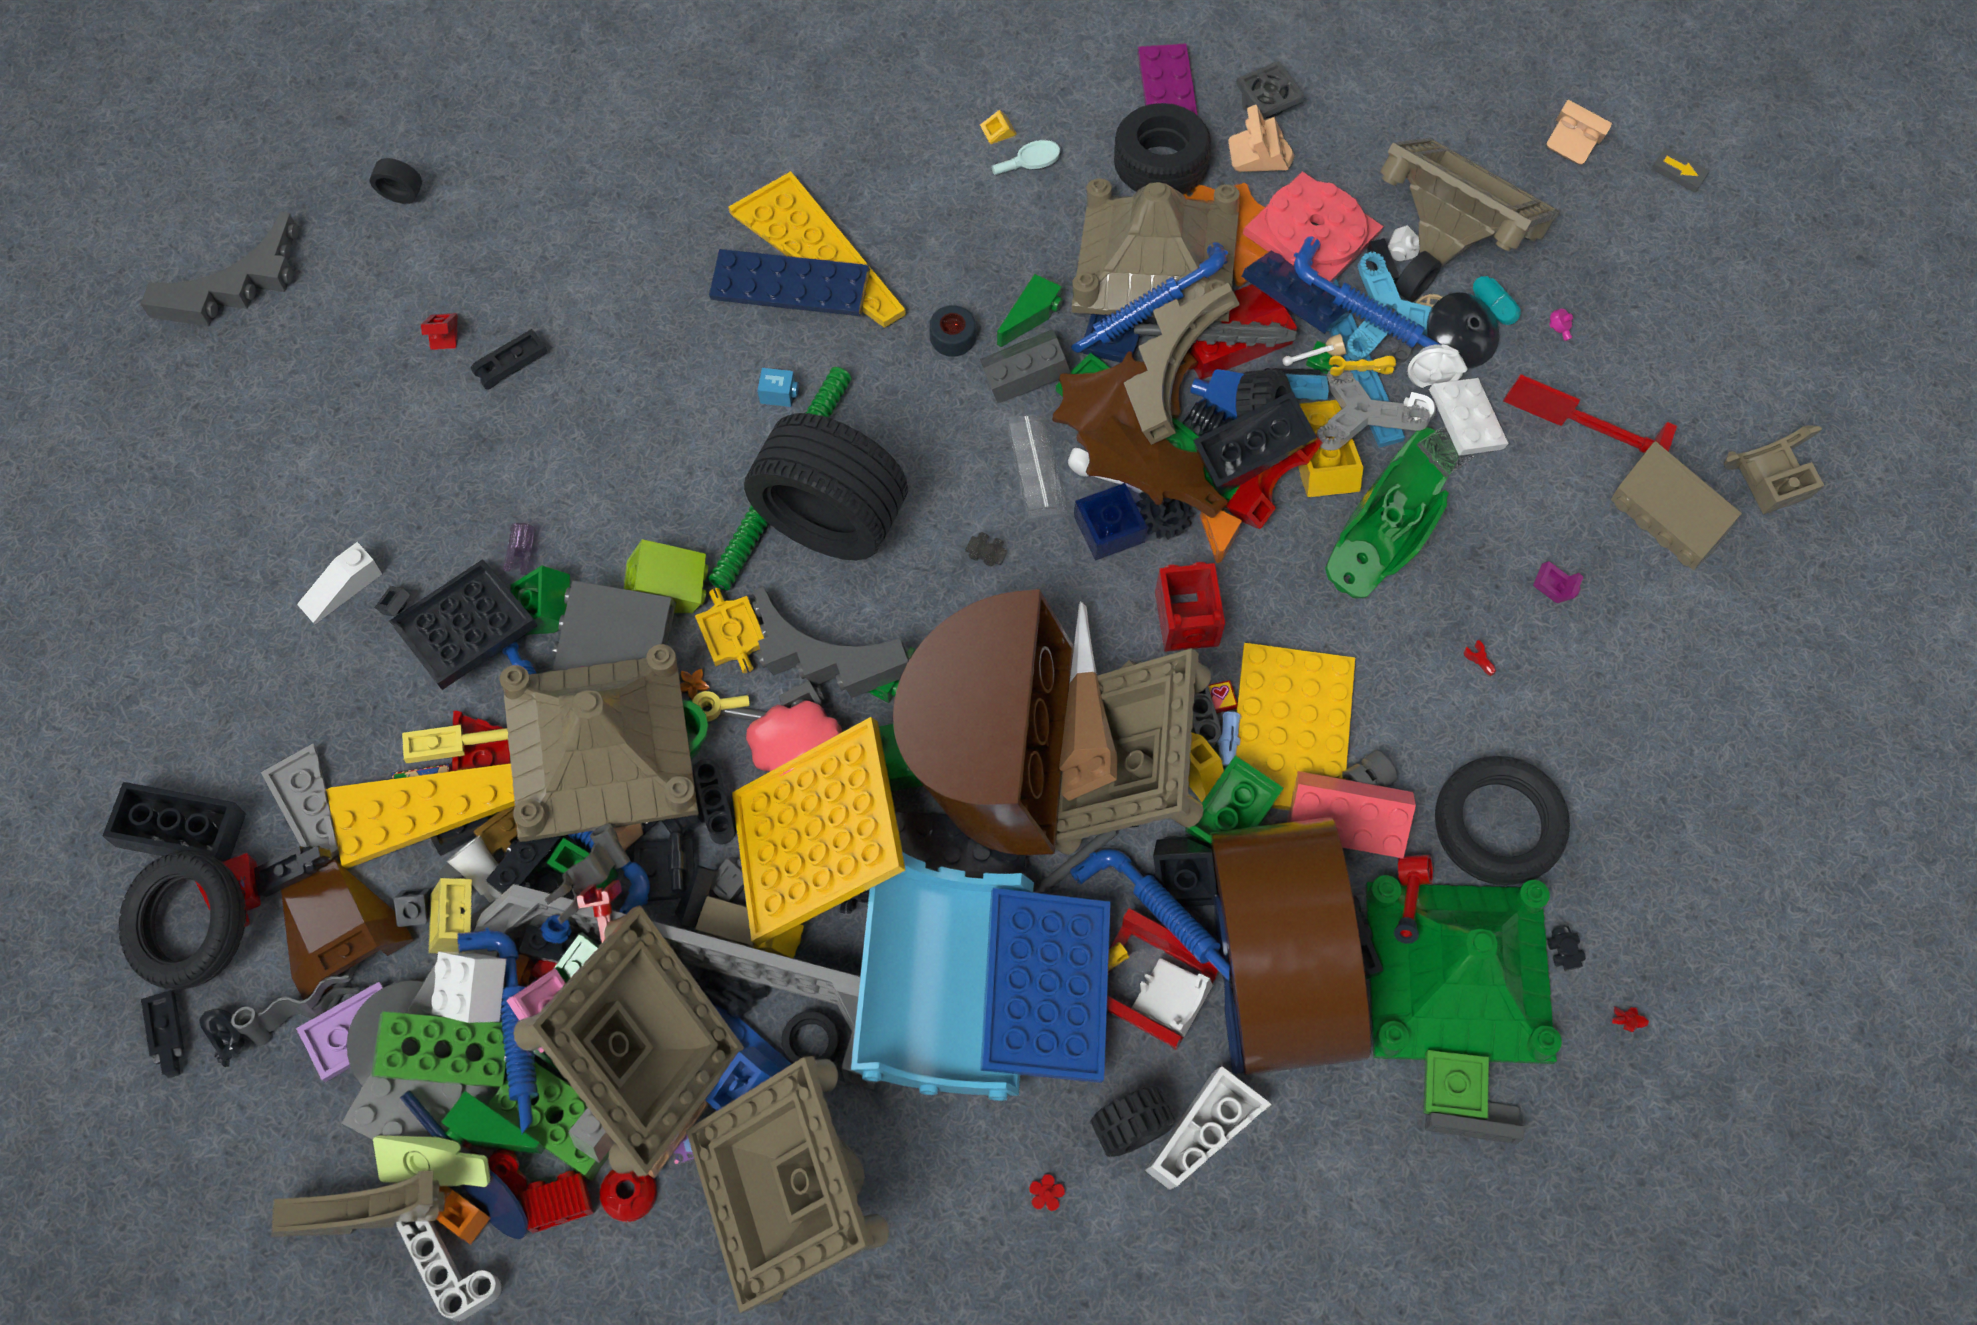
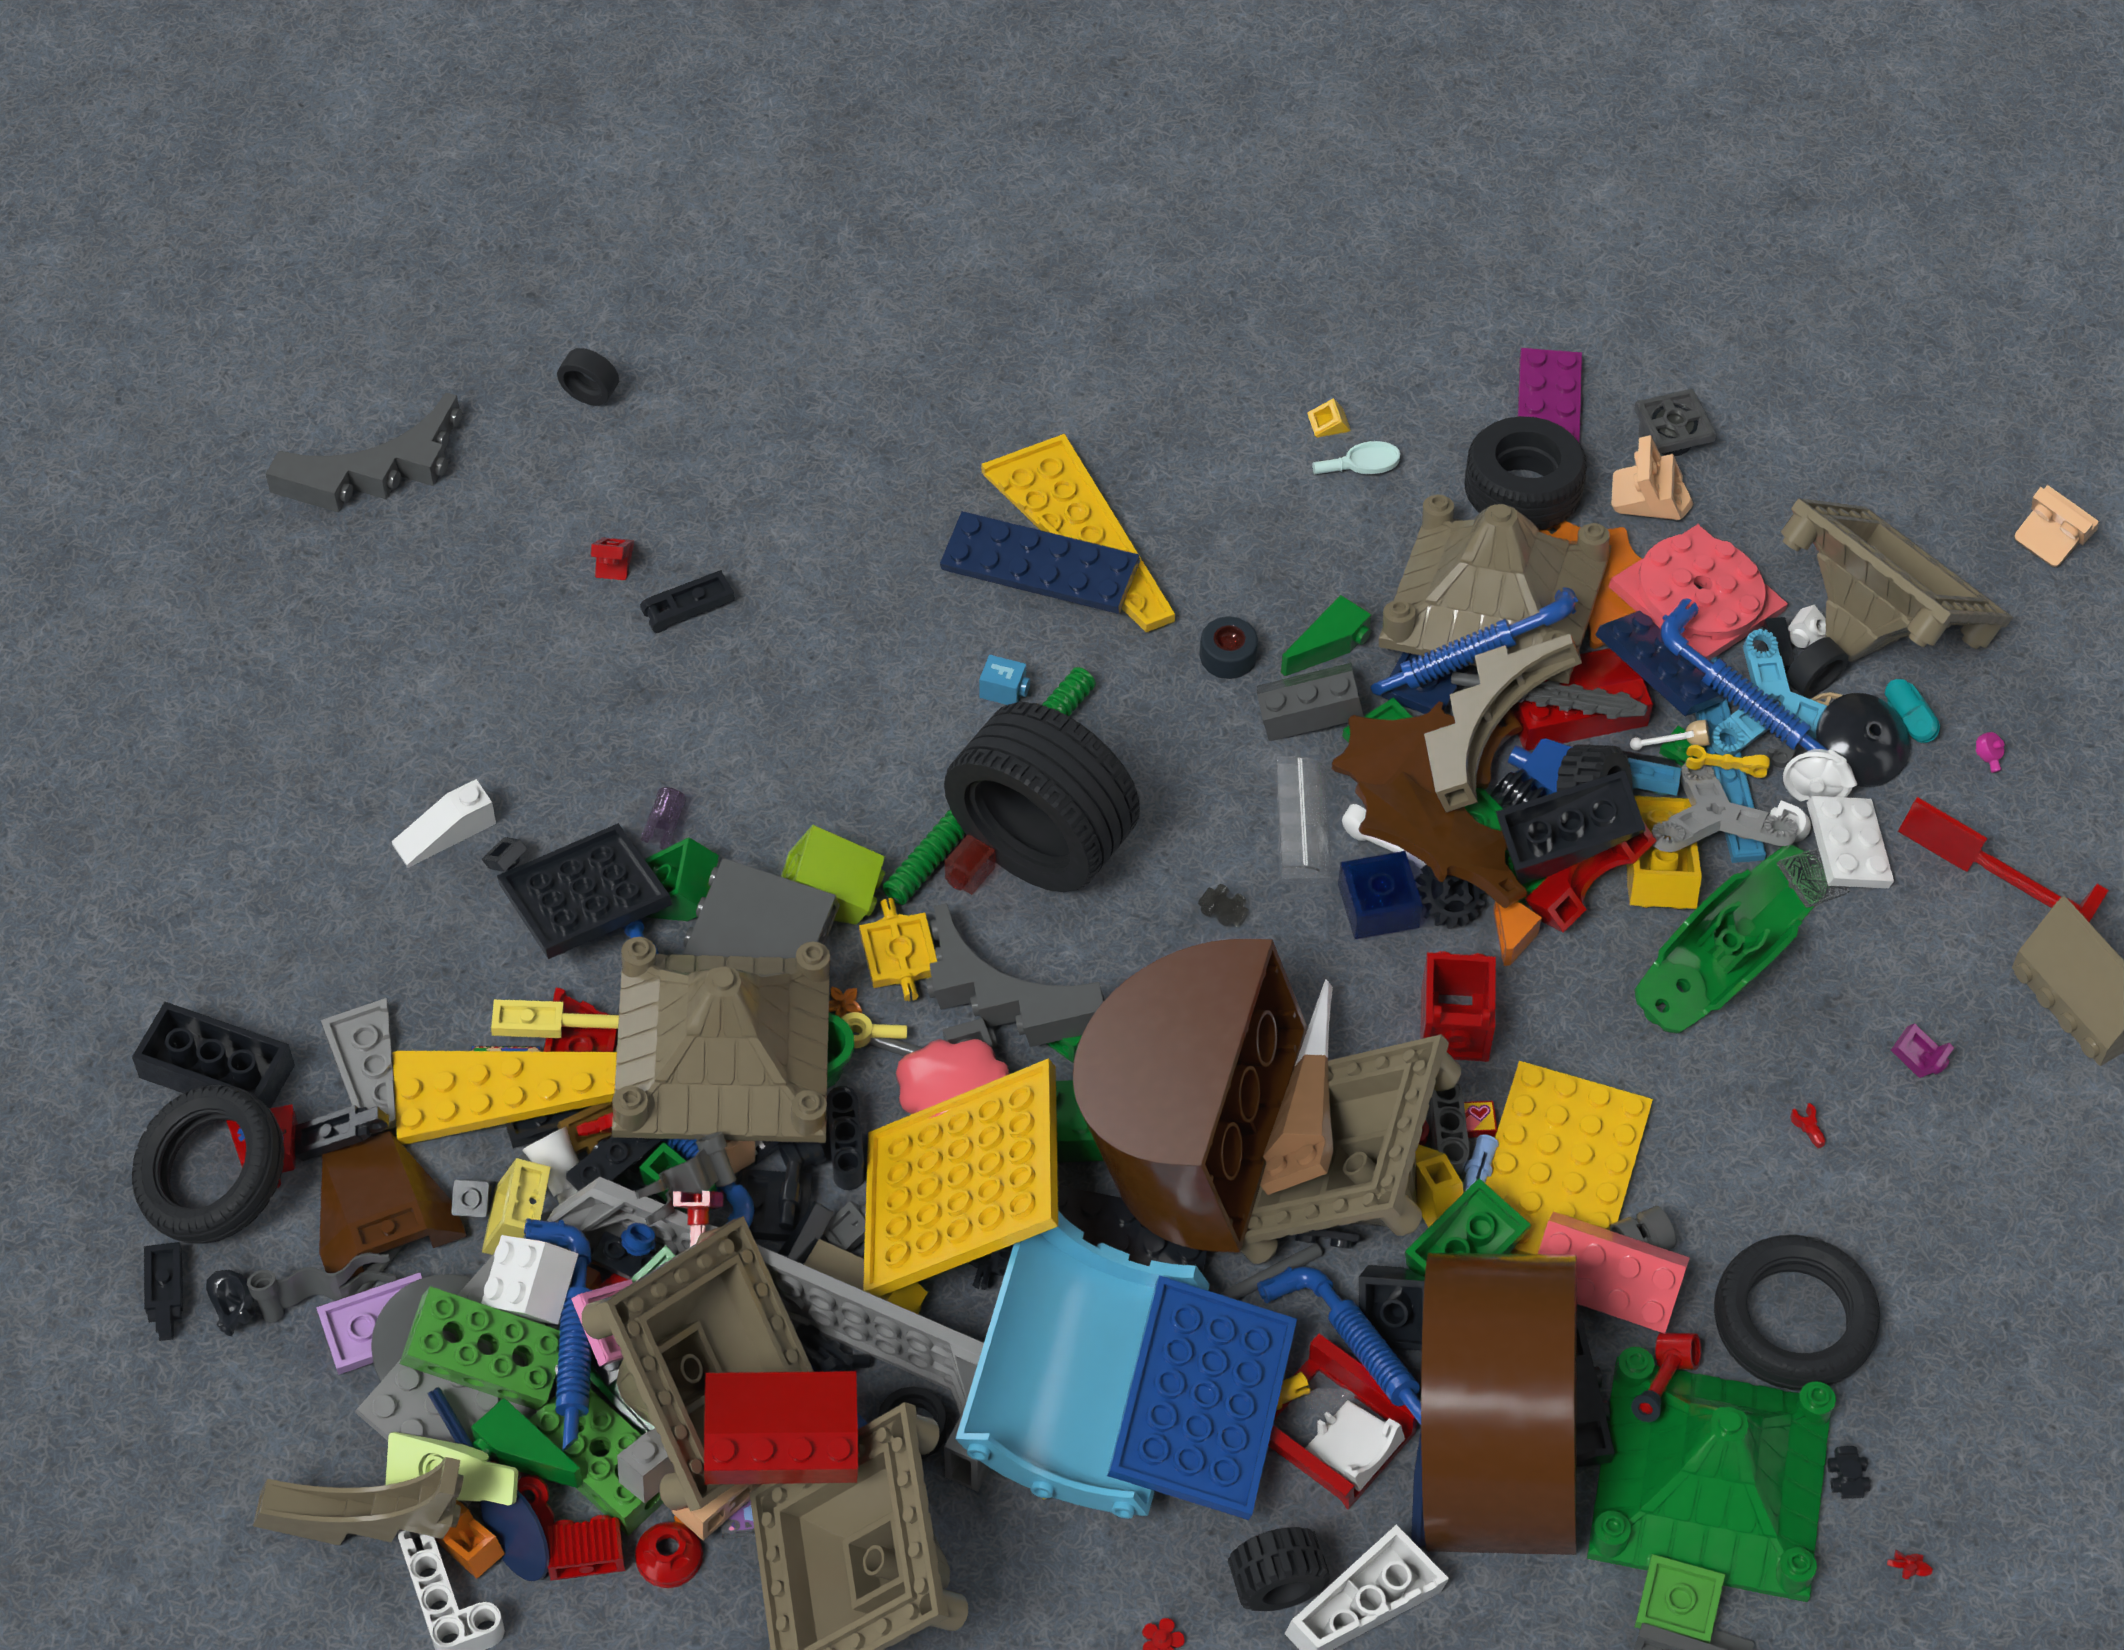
camera: 10 degrees right, 10 degrees down
(504, 830) = (600, 1125): none -> red piece
(701, 1091) = (781, 1427): none -> red slope
(776, 548) = (969, 864): none -> clear red brick

